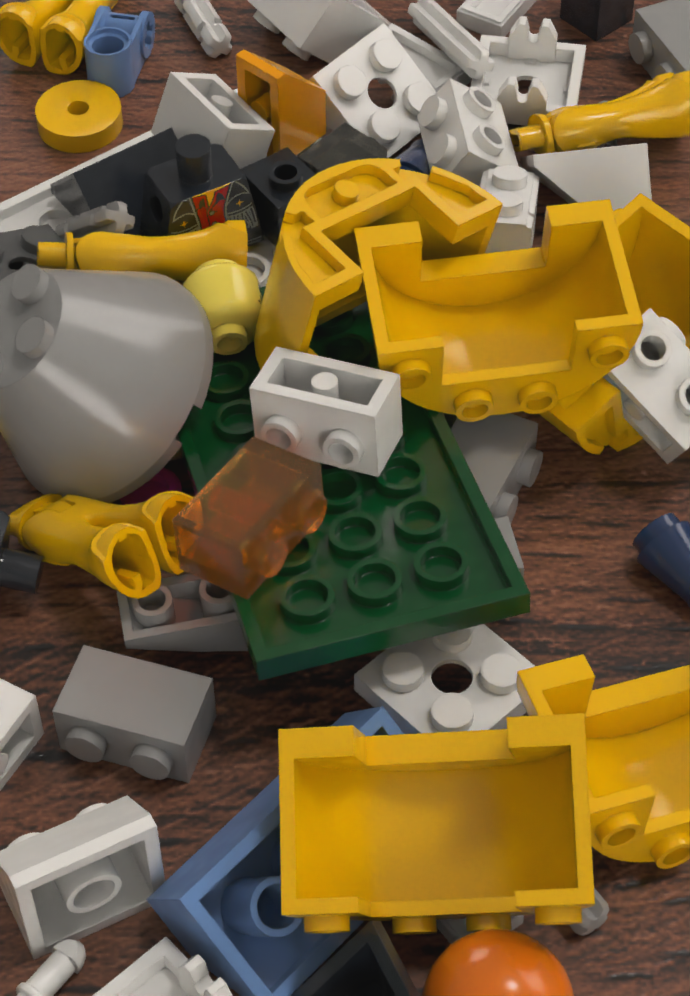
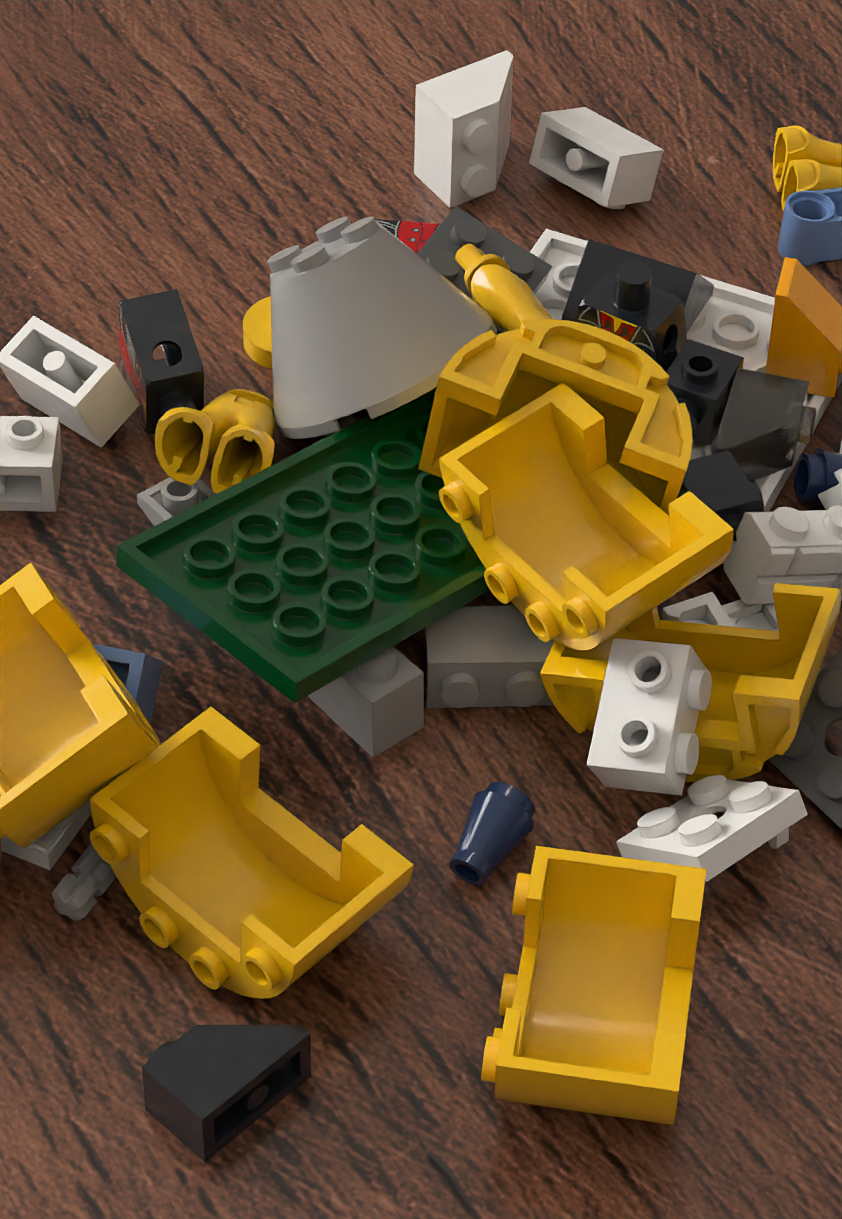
camera: 60 degrees right, 5 degrees down
(79, 116) = (734, 244): yellow piece -> none
(104, 218) = (552, 285): light grey axle -> none
(135, 714) = (84, 526): light grey brick -> none
(211, 108) = (737, 302): white brick -> none
(250, 517) = (252, 479): clear orange brick -> none
(328, 410) = (393, 478): white brick -> none
(404, 687) = (275, 719): white piece -> none

